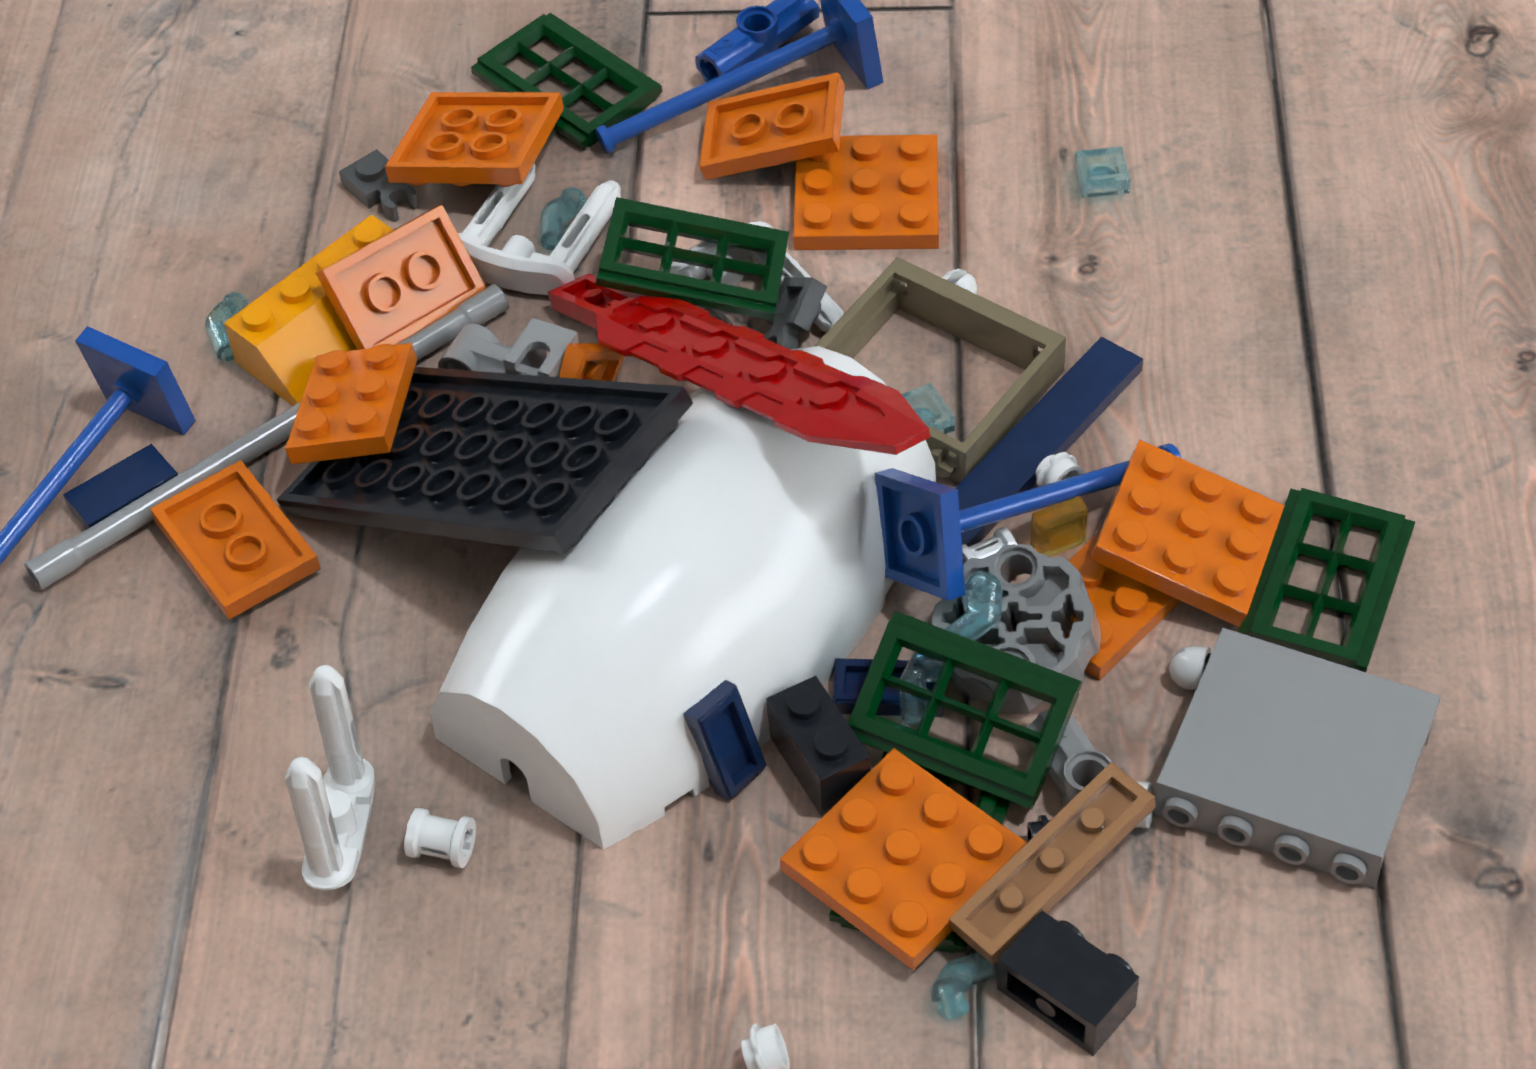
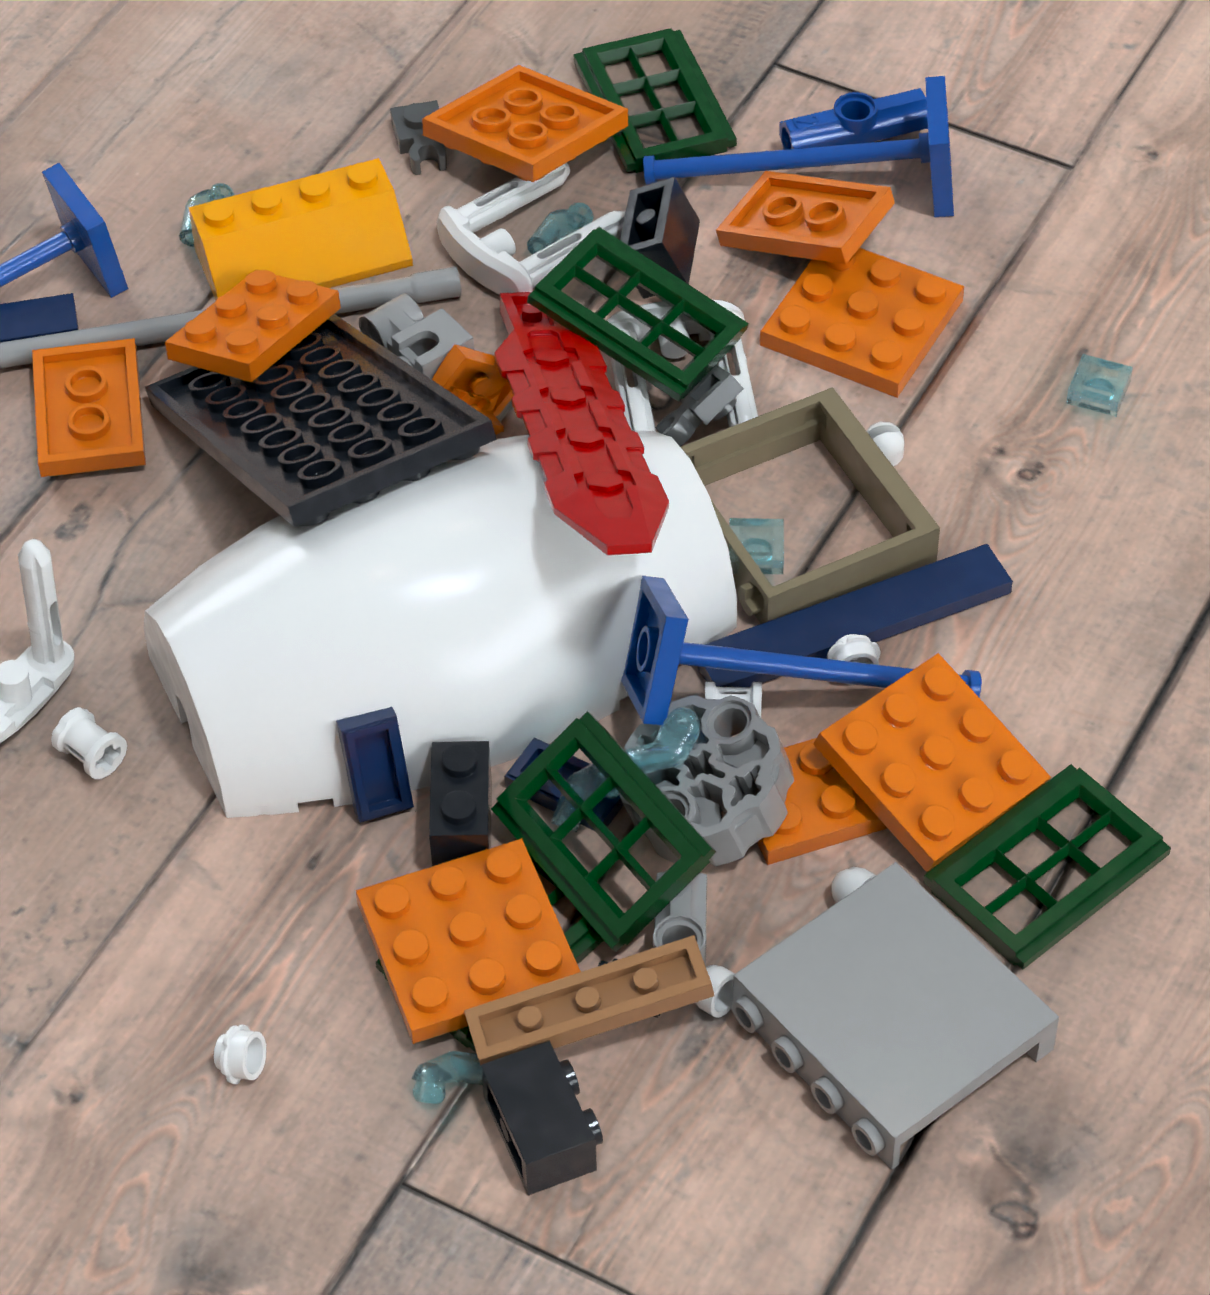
camera: 25 degrees right, 0 degrees up
(401, 281) = (369, 230): orange plate -> none
(656, 178) = (662, 227): none -> black brick
(1059, 527) = (816, 704): clear yellow tile -> none

